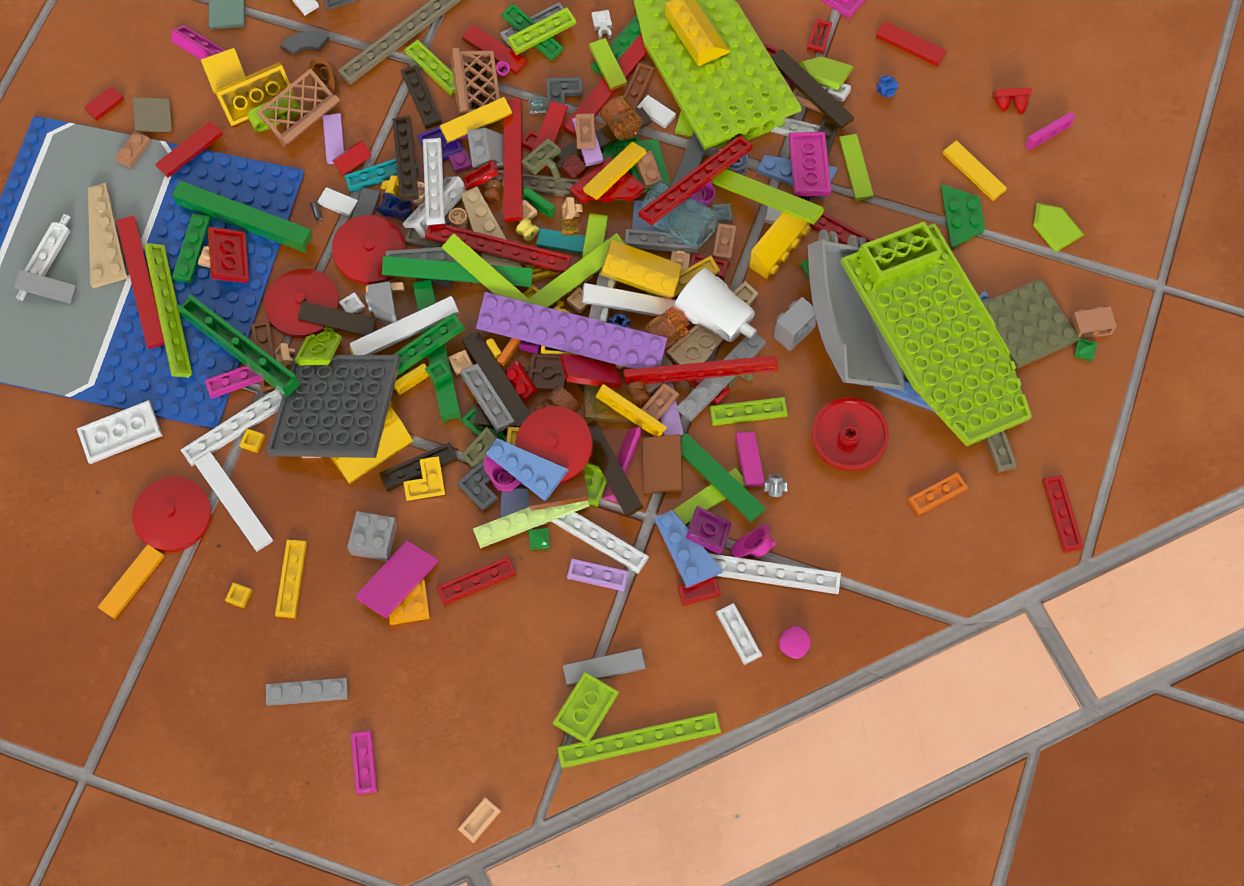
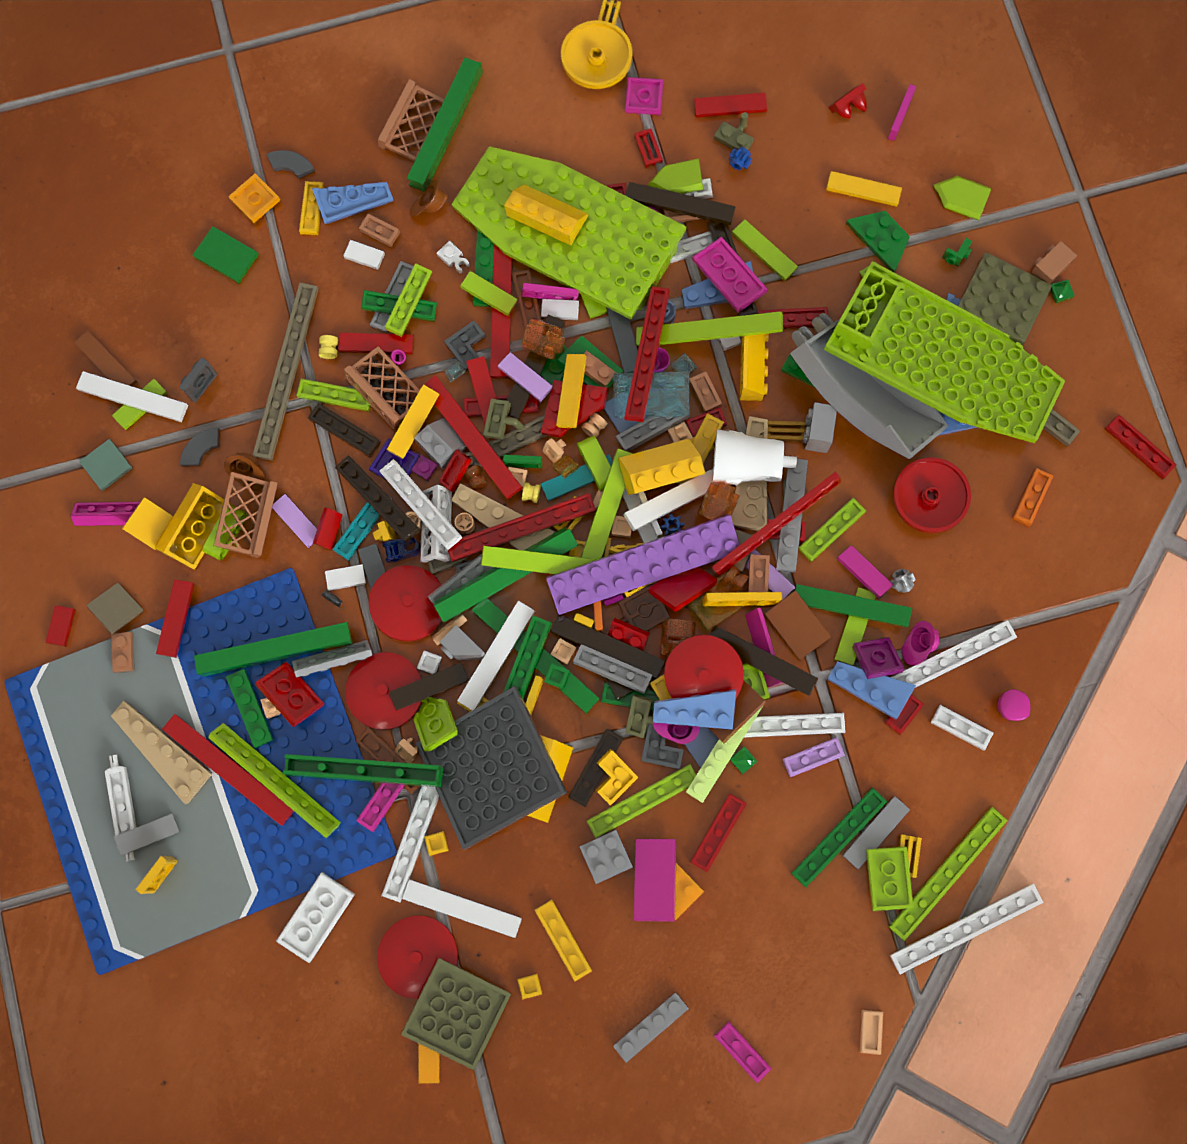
camera: 30 degrees left, 10 degrees up
(28, 318) = (157, 875): none -> yellow tile
(165, 573) = (456, 1013): none -> olive plate
(274, 249) = (332, 658): none -> light grey plate
(434, 515) = (641, 801): none -> lime tile
(455, 29) = (328, 345): none -> light yellow wheel
(570, 650) = (838, 837): none -> green tile
(573, 165) = (529, 408): clear red tile -> none
(585, 131) = (520, 371): nougat plate -> none
(615, 211) = (594, 425): none -> light nougat wheel
(620, 792) = (966, 928): none -> white plate
(628, 691) = (909, 849): none -> yellow tile
(655, 91) = (548, 292): none -> dark pink tile
(770, 306) = (786, 430): none -> pearl gold tile
(893, 67) = (734, 137): none -> olive plate
(1018, 267) = (955, 258): none -> green bracket

